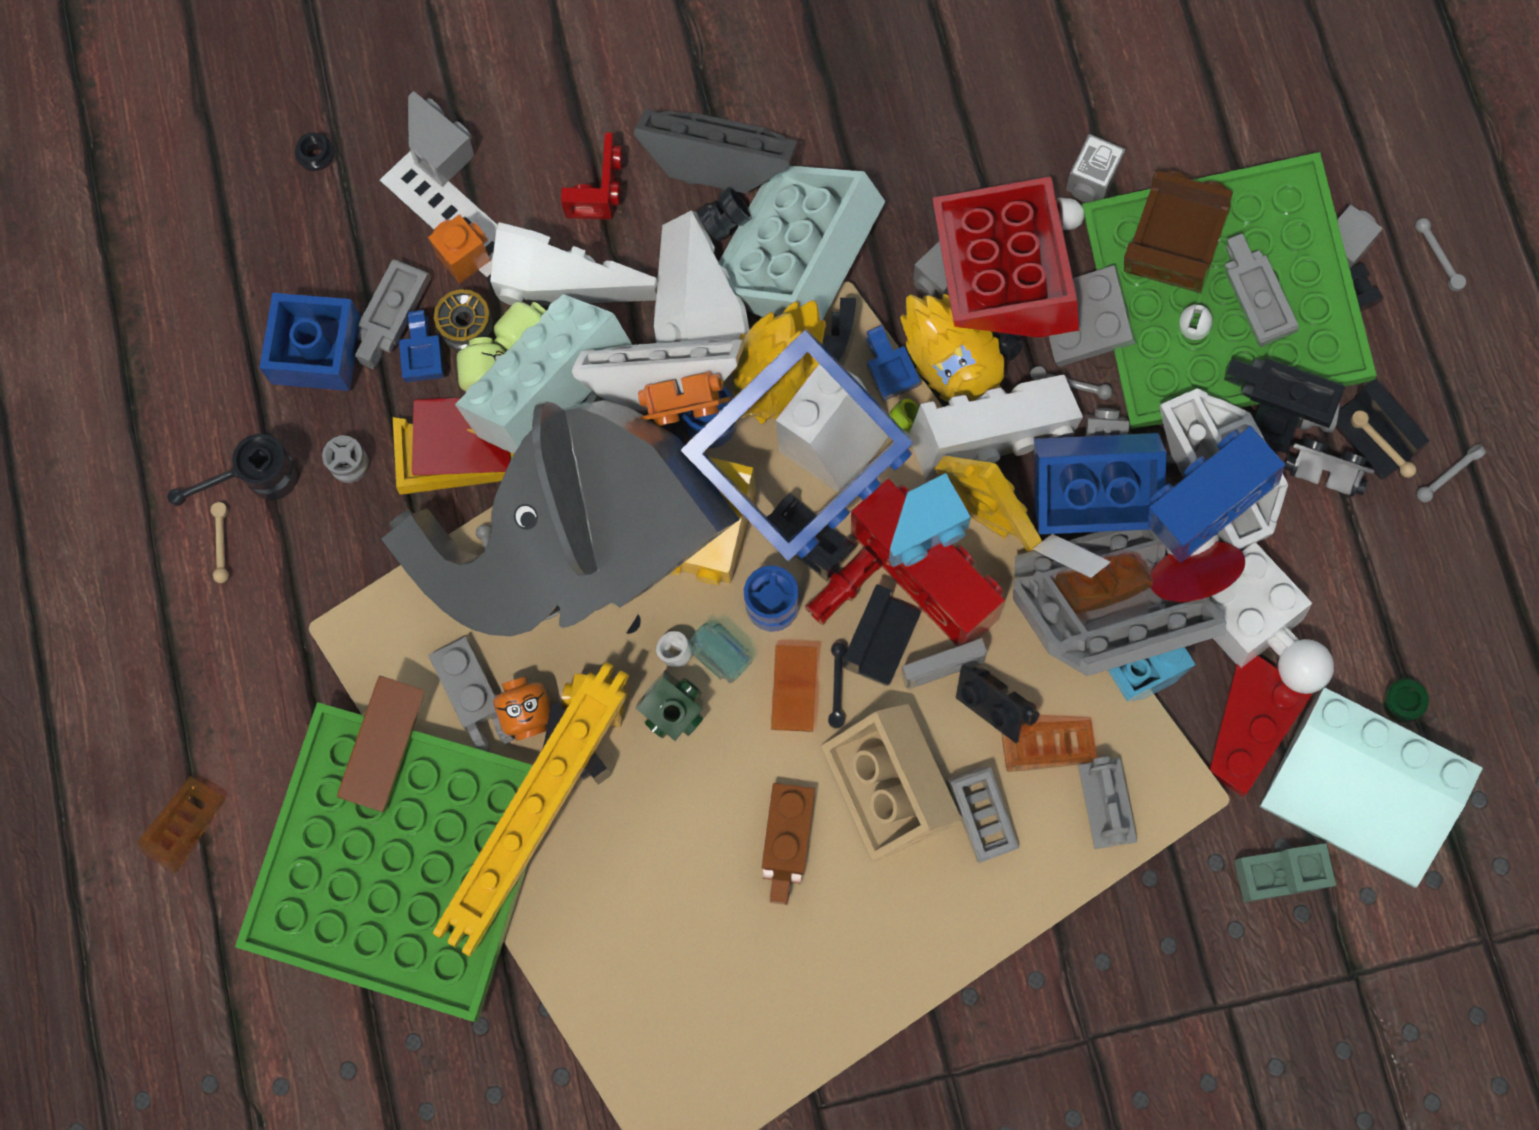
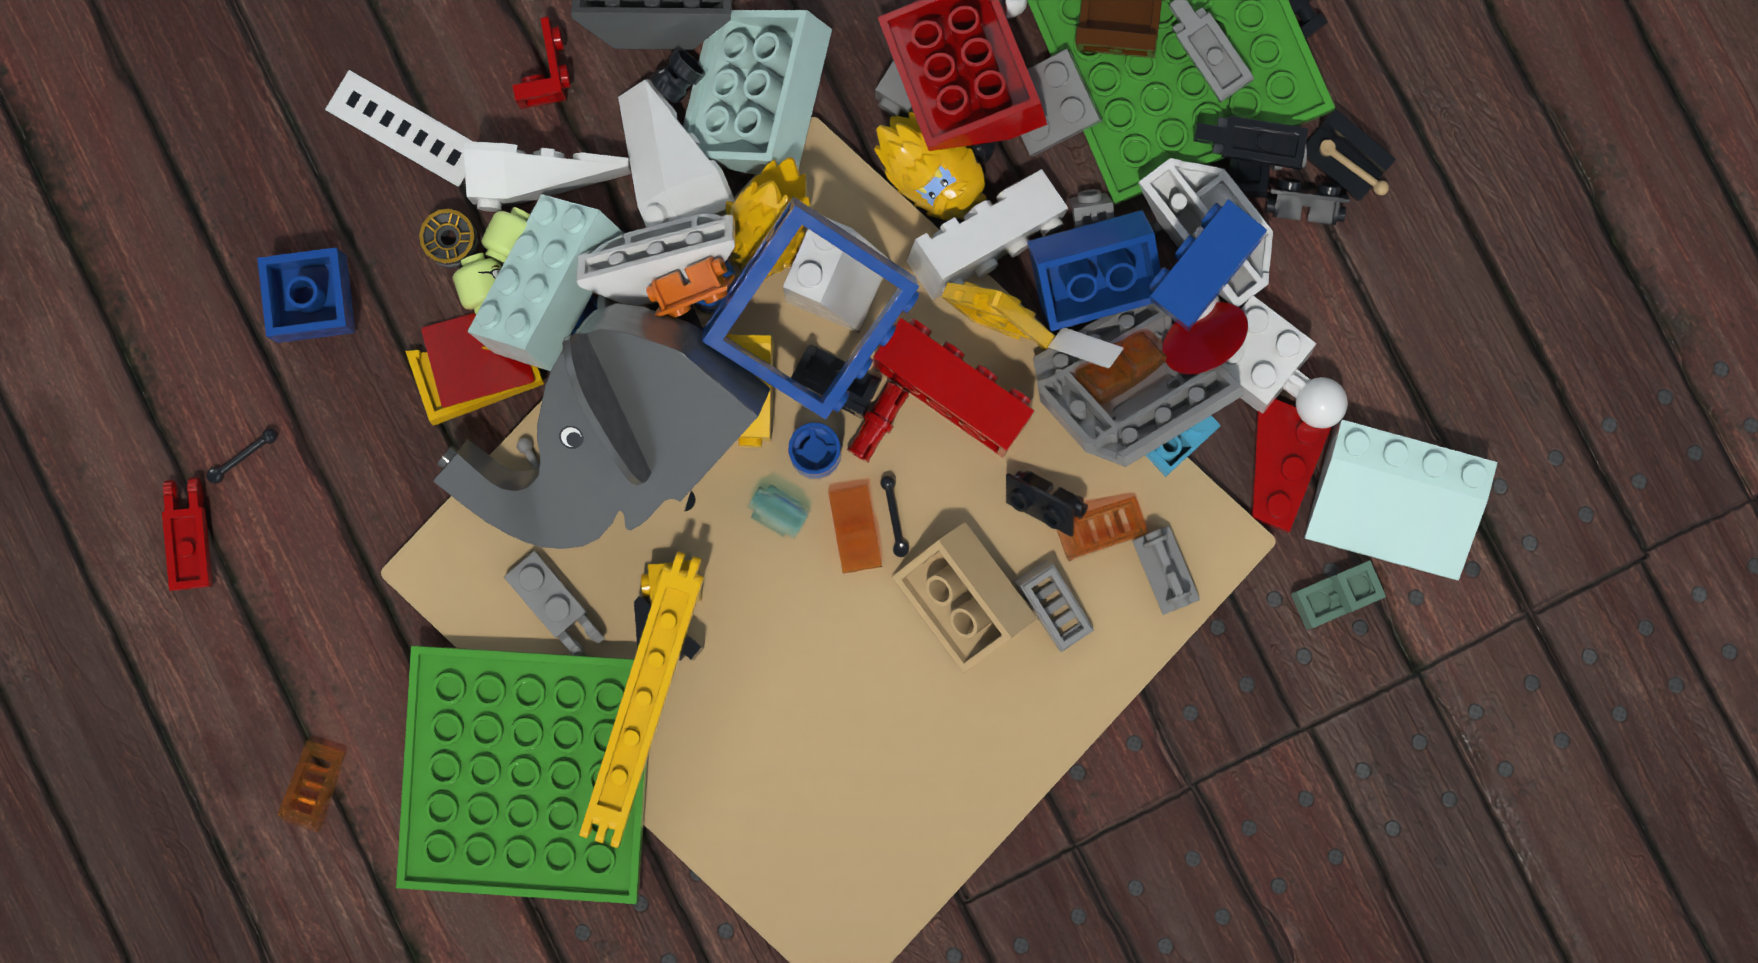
camera: 20 degrees left, 10 degrees up
(129, 549) = (186, 538): none -> red hinge
(220, 511) = (261, 480): tan hinge -> none
(265, 466) = (296, 429): black wheel -> none
(309, 143) = (244, 88): black plate -> none
(339, 452) = (364, 398): light grey wheel -> none
(381, 744) = (484, 673): dark orange slope -> none
(388, 311) = (373, 244): light grey hinge -> none
(421, 354) = (416, 282): blue plate -> none
(435, 142) = (372, 62): light grey slope -> none
(460, 247) = (426, 165): orange brick -> none
(522, 708) = (607, 607): orange head -> none
(666, 692) = (745, 574): dark green brick -> none
(677, 641) = (738, 510): white hinge -> none
(787, 838) = (880, 670): dark orange hinge -> none
(842, 330) = (819, 166): black slope -> none
(881, 637) = (925, 462): black panel -> none
(890, 368) = (876, 199): blue plate -> none
(905, 414) = (899, 242): lime hinge -> none
(928, 517) = (946, 351): medium azure slope -> none
(943, 664) = (989, 475): light grey tile -> none
(1103, 391) = (1017, 169): light grey hinge -> none
(1204, 325) = (1164, 89): white hinge -> none
(1405, 700) = (1418, 409): dark green tile -> none
(1425, 494) = (1402, 206): light grey hinge -> none

